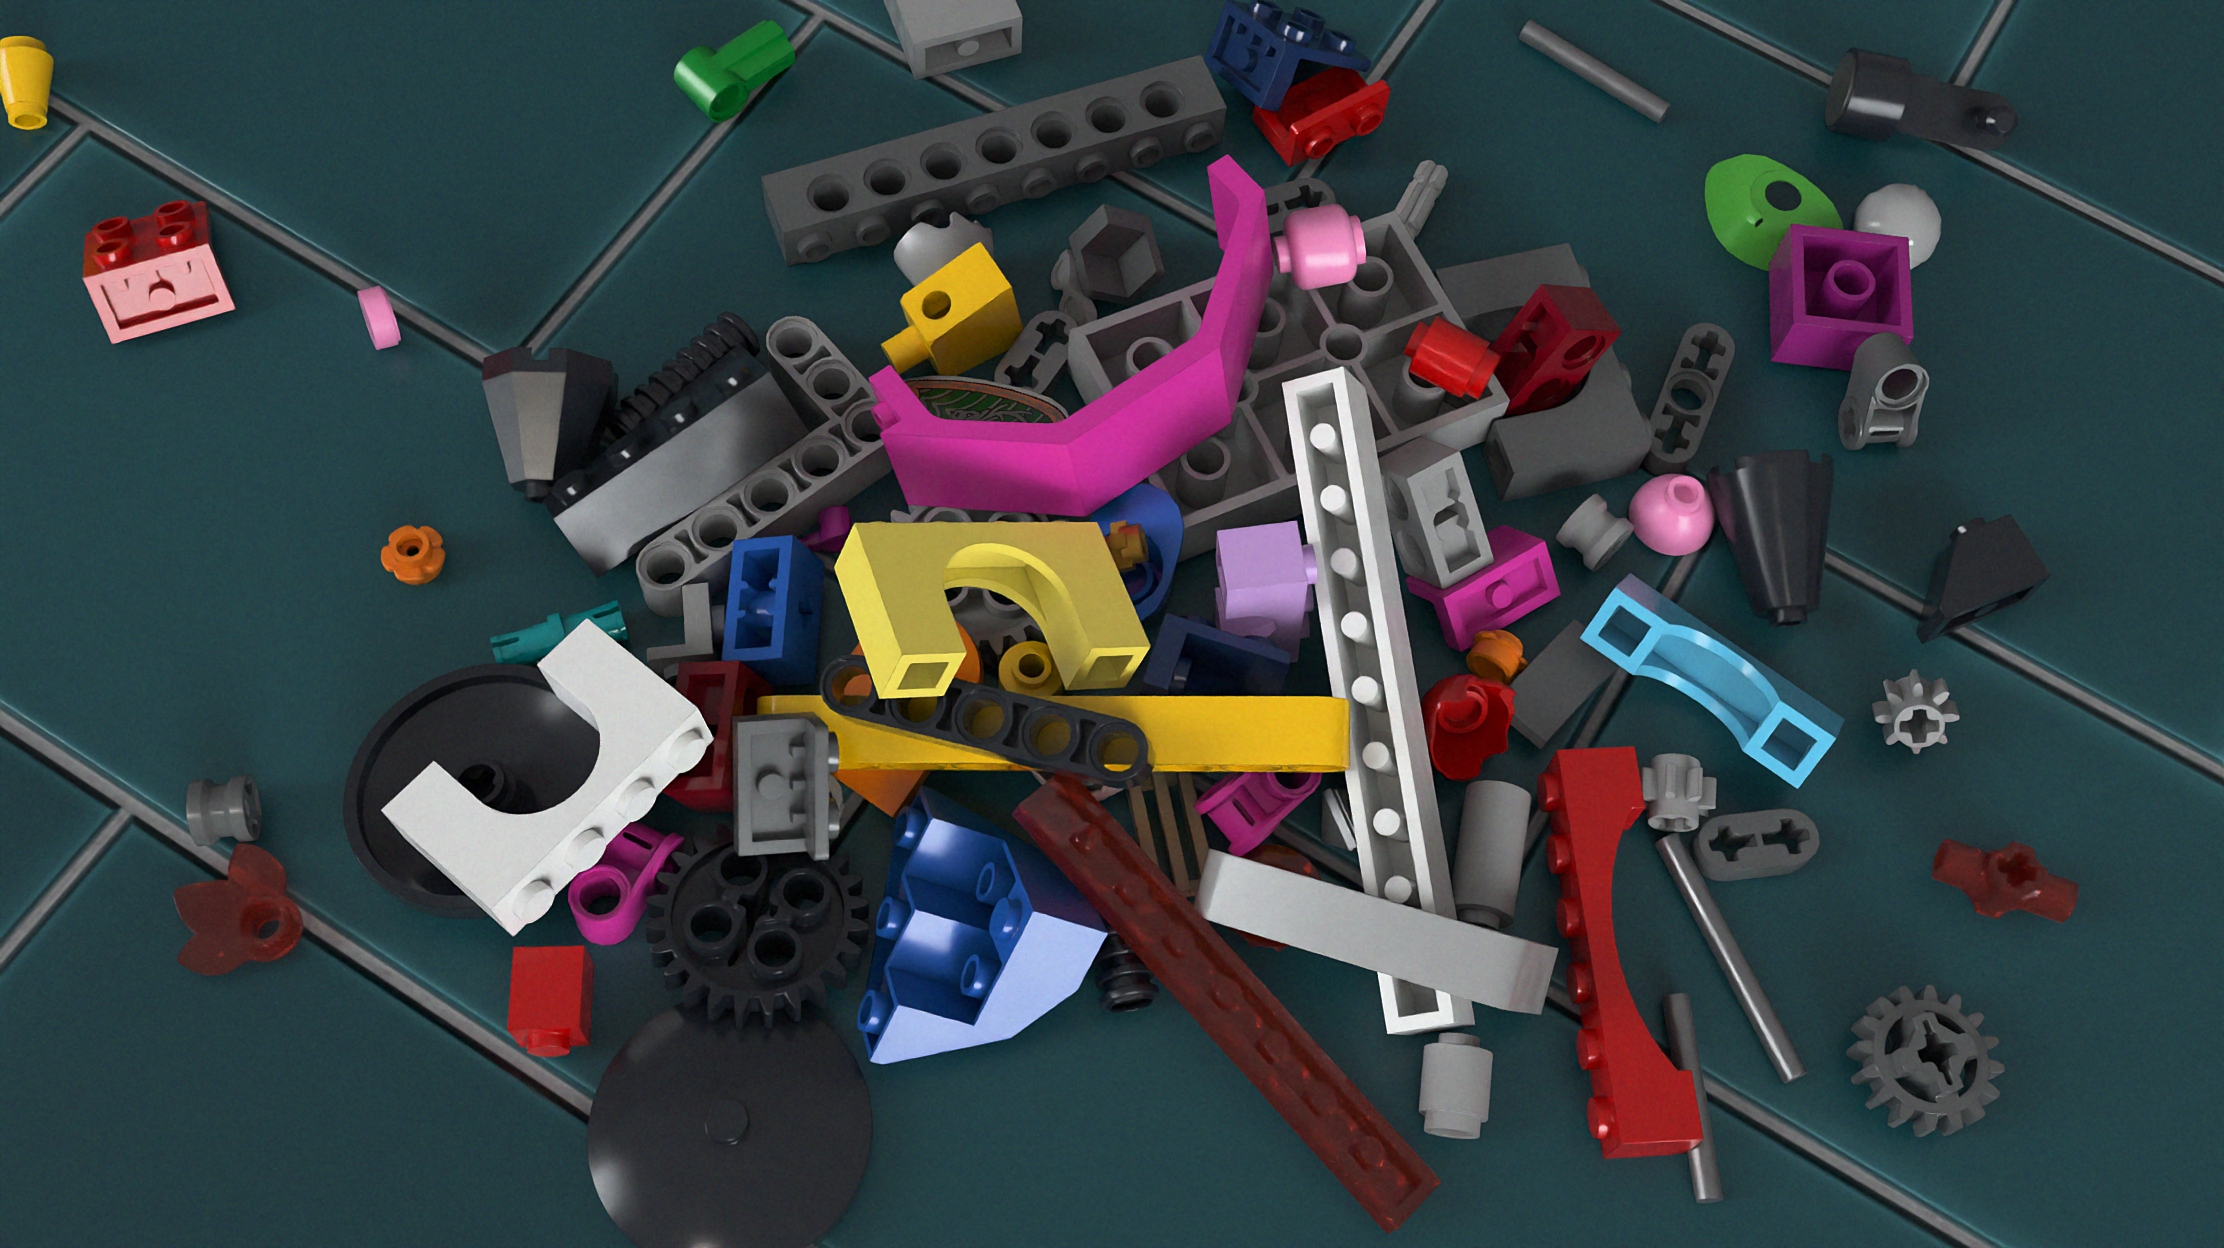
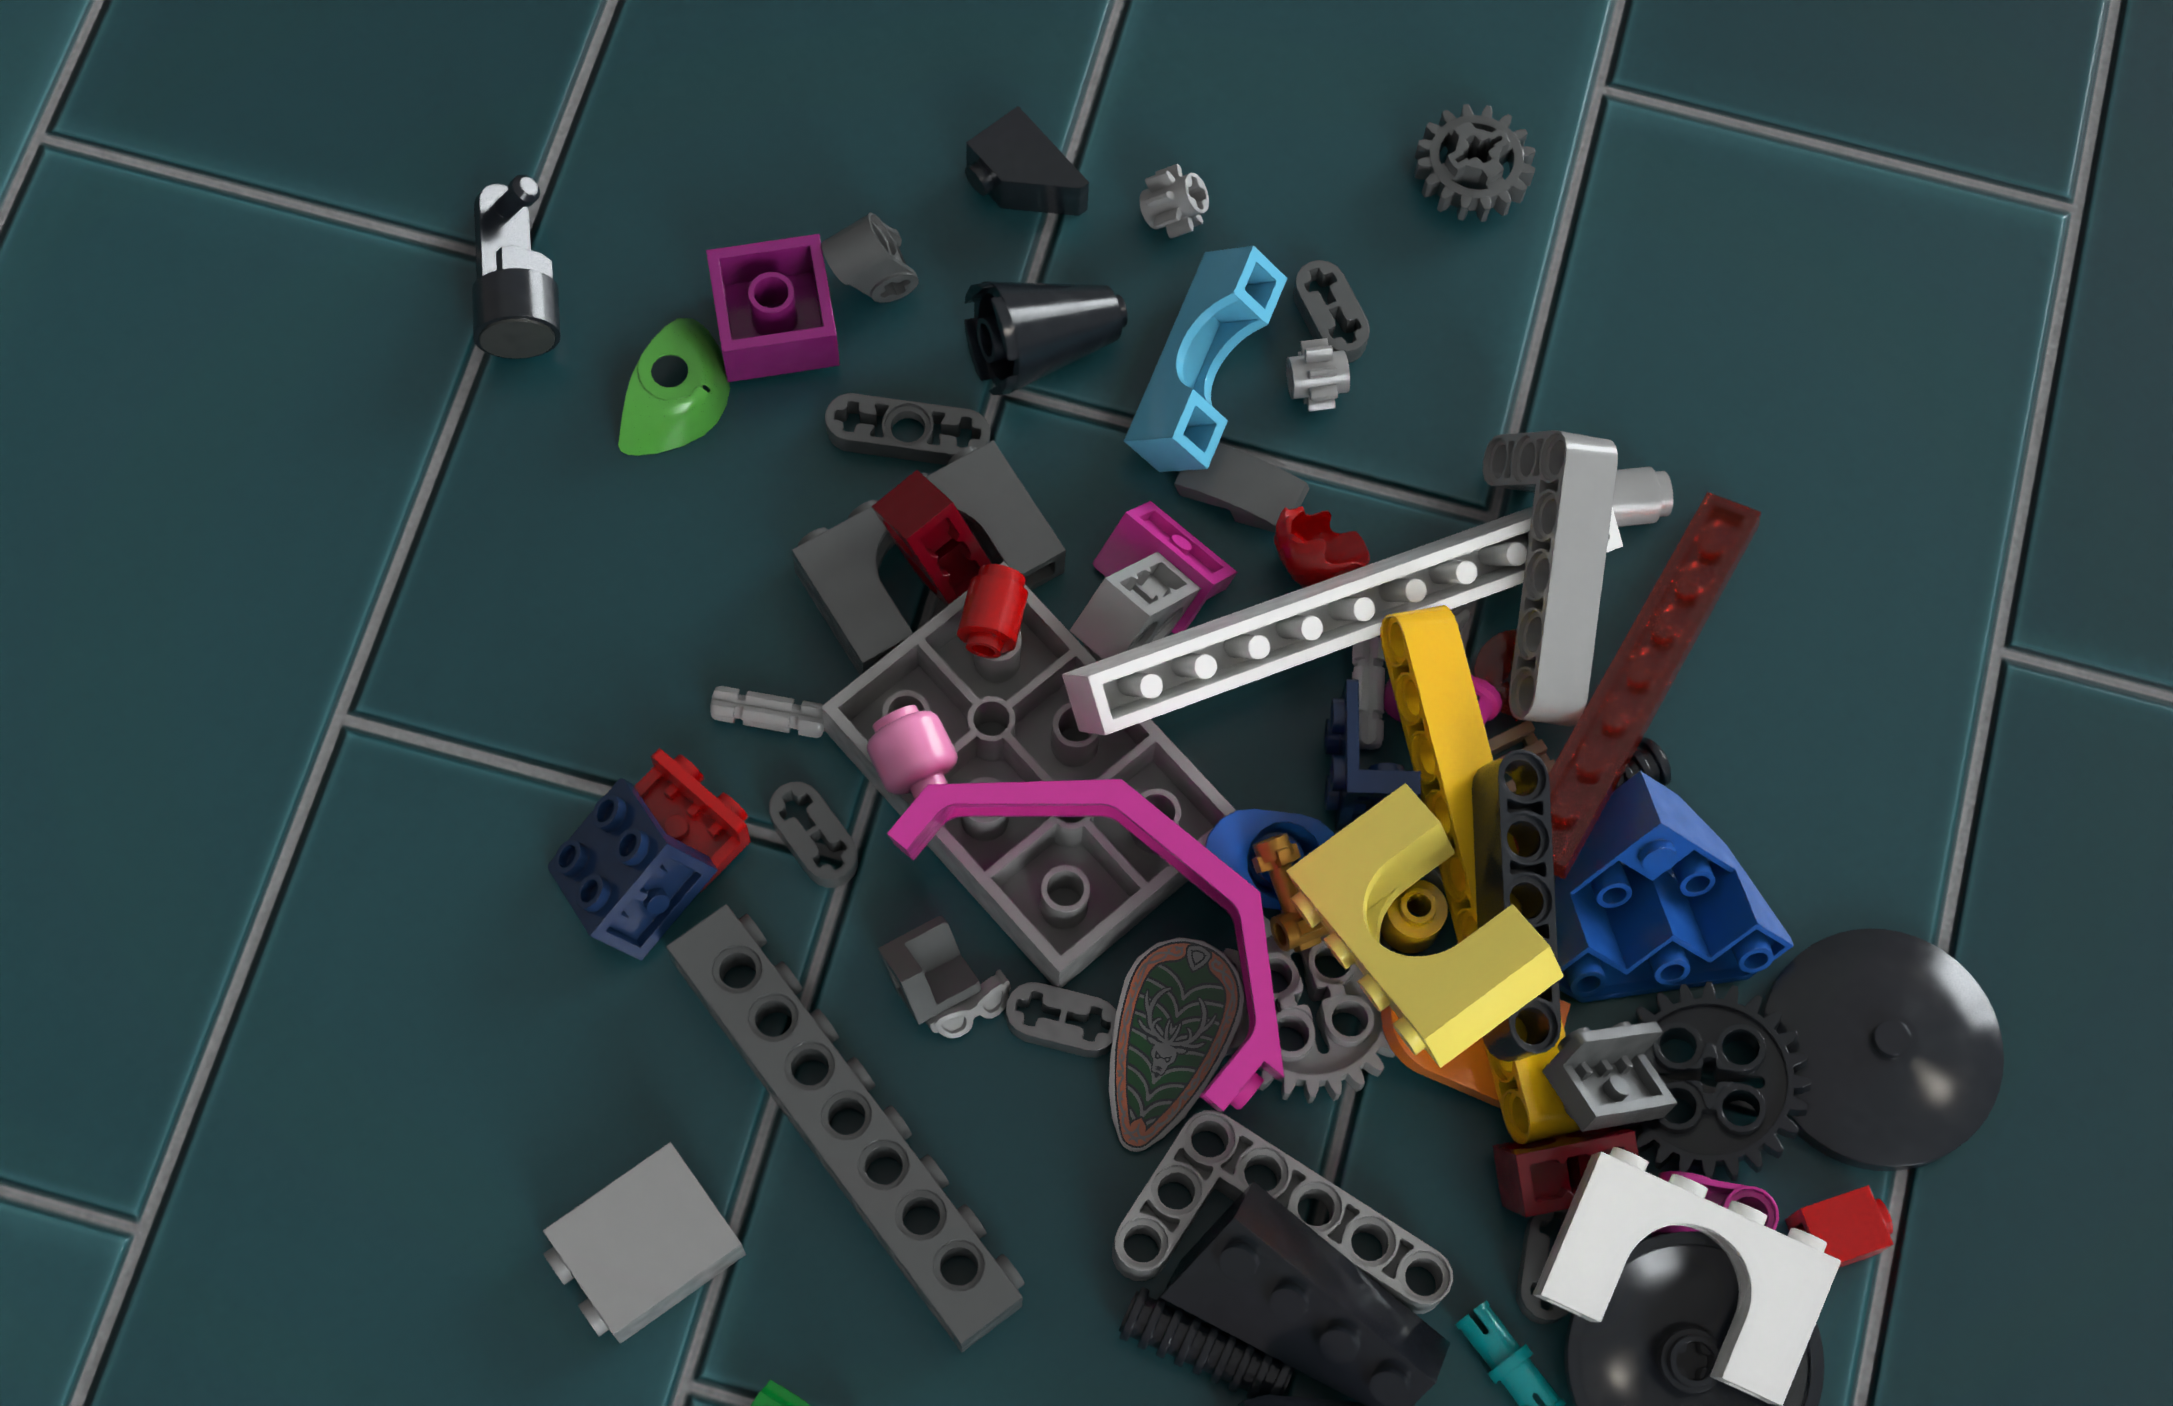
camera: 105 degrees left, 5 degrees up
(703, 631) = (1460, 1228): light grey bracket -> none
(774, 609) = (1430, 1163): blue brick -> none
(833, 530) = (1312, 1150): magenta hand -> none
(930, 248) = (993, 1128): light grey hair -> none
(957, 317) = (1037, 1088): yellow torso -> none
(1265, 583) = (1288, 723): lavender arch -> none
(1490, 853) = (1425, 508): light grey brick -> none
(1496, 655) = (1234, 539): orange plate -> none
(1595, 71) = (537, 577): flat silver bar -> none
(1595, 532) = (1085, 480): light grey wheel -> none
(1638, 1094) = (1355, 436): red arch -> none
(1672, 514) = (1034, 424): bright pink brick -> none
(1685, 1056) = (1560, 327): flat silver bar -> none
(1731, 958) = (1434, 316): flat silver bar -> none
(1902, 212) = (658, 275): light grey hair -> none
(2004, 880) = (1300, 121): clear red axle -> none

